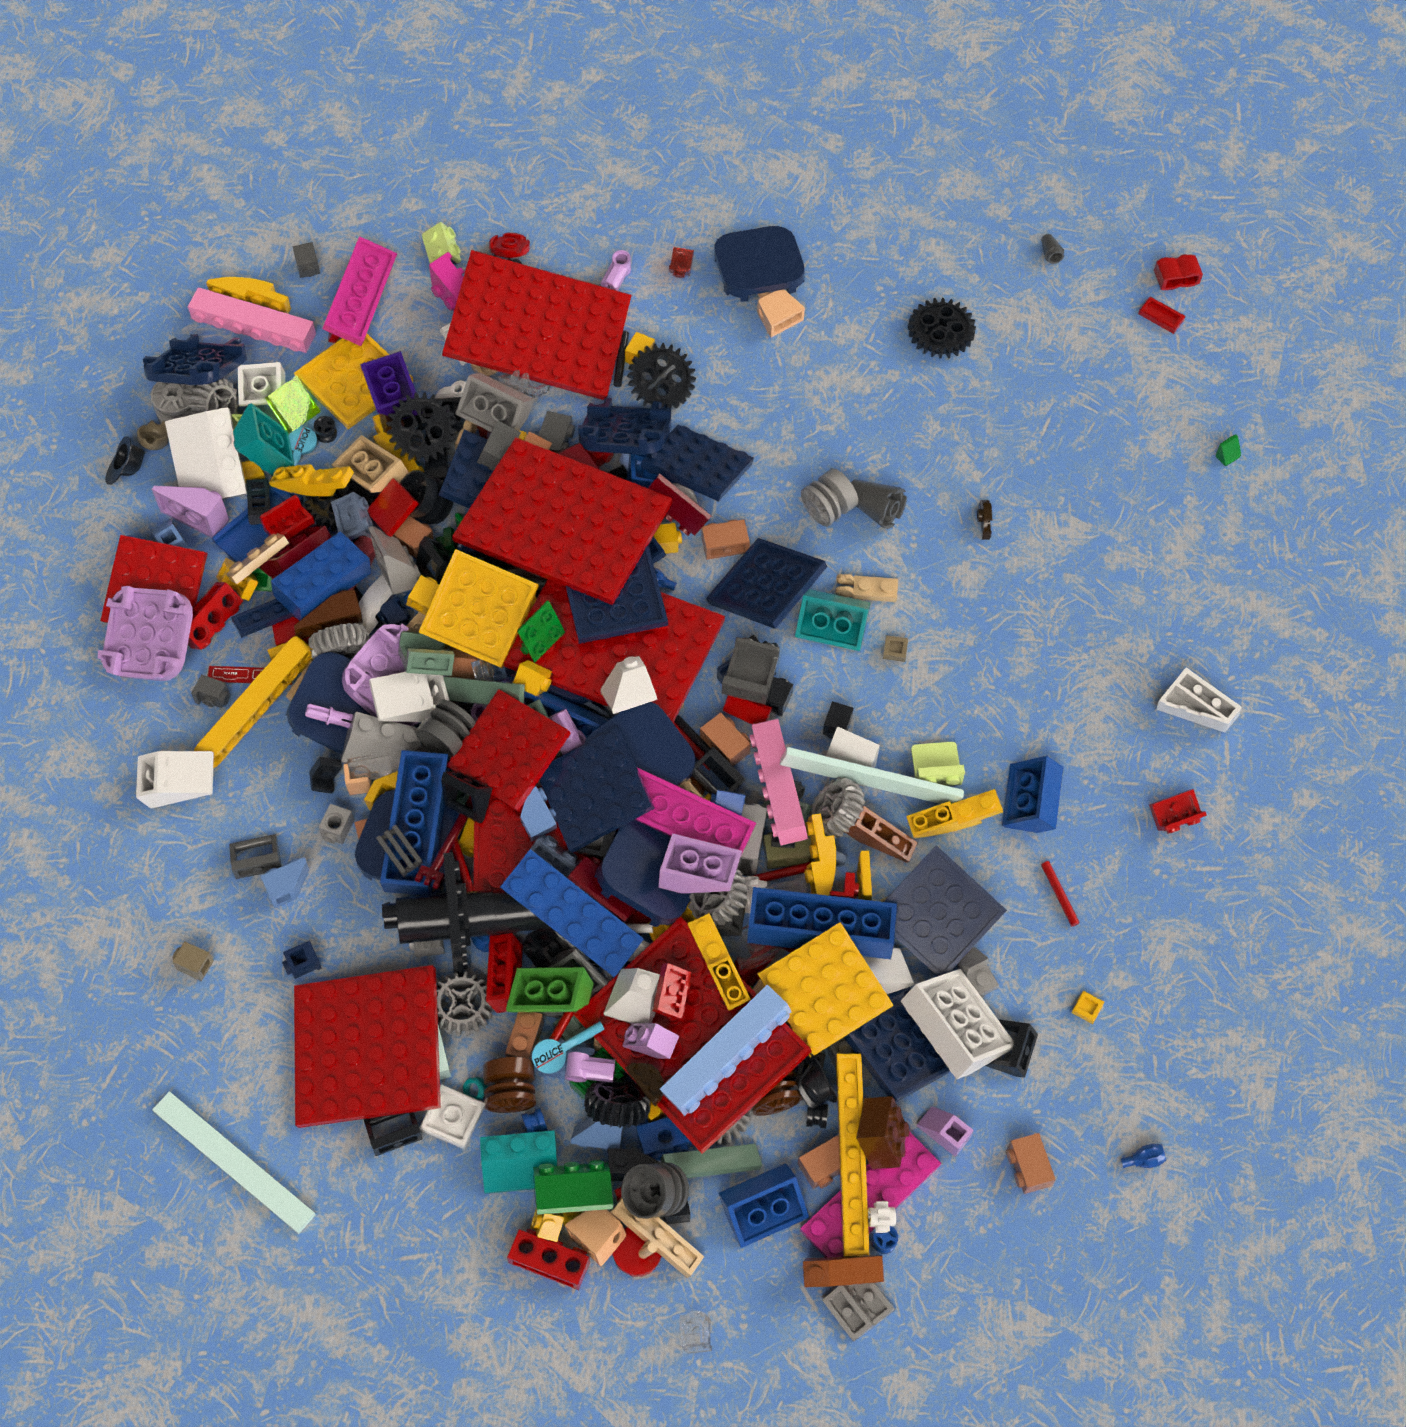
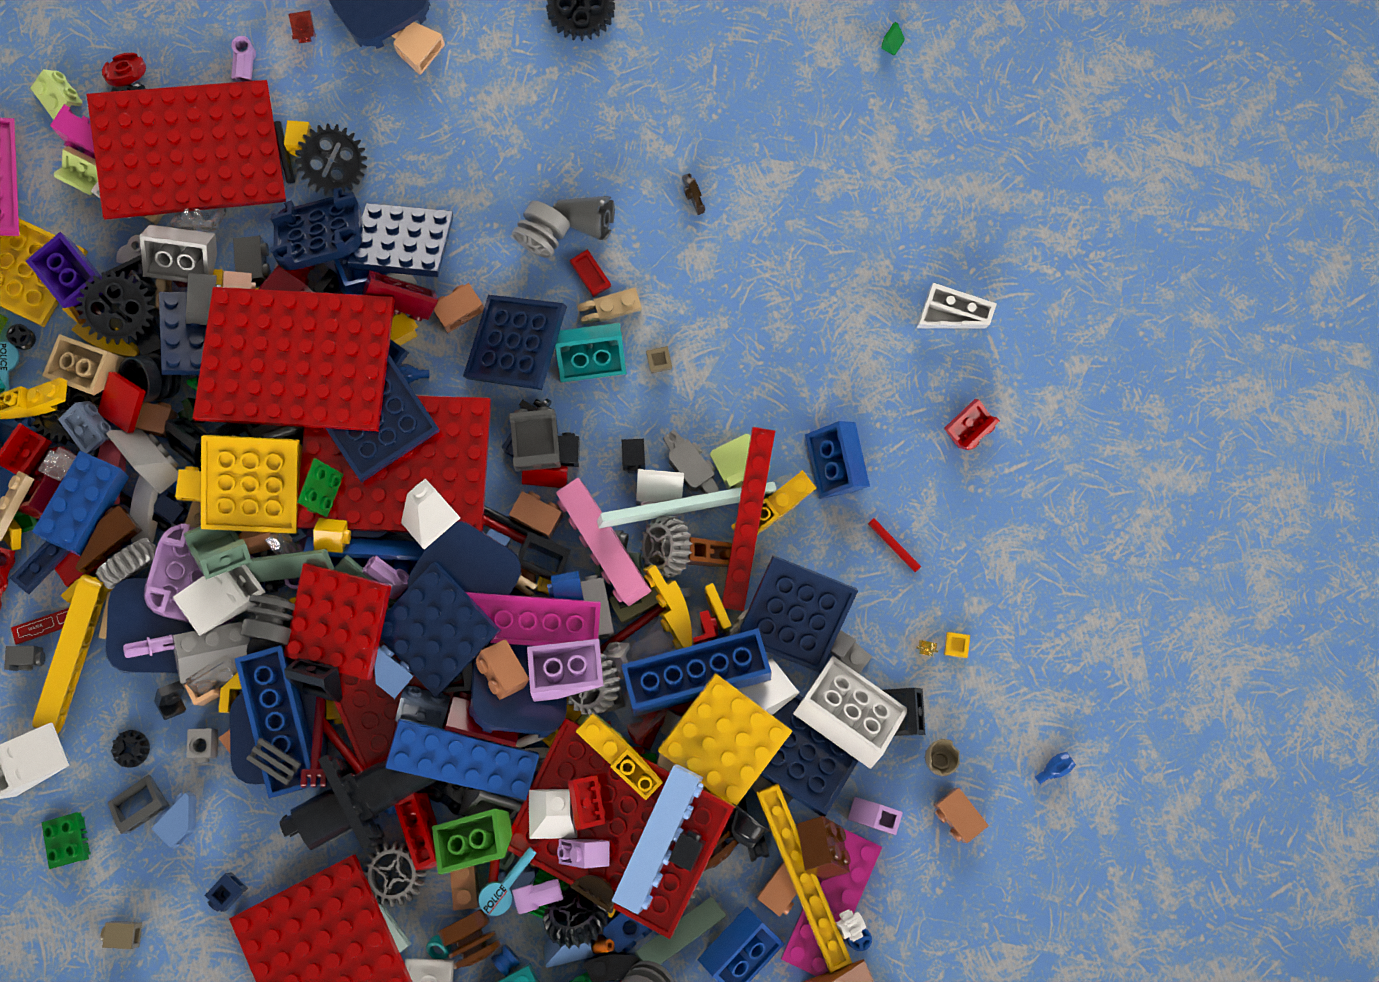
camera: 25 degrees left, 15 degrees up
(178, 861) = (65, 840): none -> green hinge
(278, 809) = (140, 750): none -> black gear
(316, 535) = (57, 463): none -> clear brick
(434, 311) = (77, 170): none -> yellowish green bracket
(632, 1142) = (602, 945): none -> orange arm
(641, 845) = (502, 669): none -> nougat brick
(750, 1069) = (687, 850): none -> black brick
(860, 553) = (590, 273): none -> red tile
(891, 754) = (686, 459): none -> light grey hinge
(925, 811) = (748, 518): none -> red plate
(1033, 1101) = (942, 757): none -> dark tan hair
(1056, 997) = (927, 648): none -> clear yellow plate

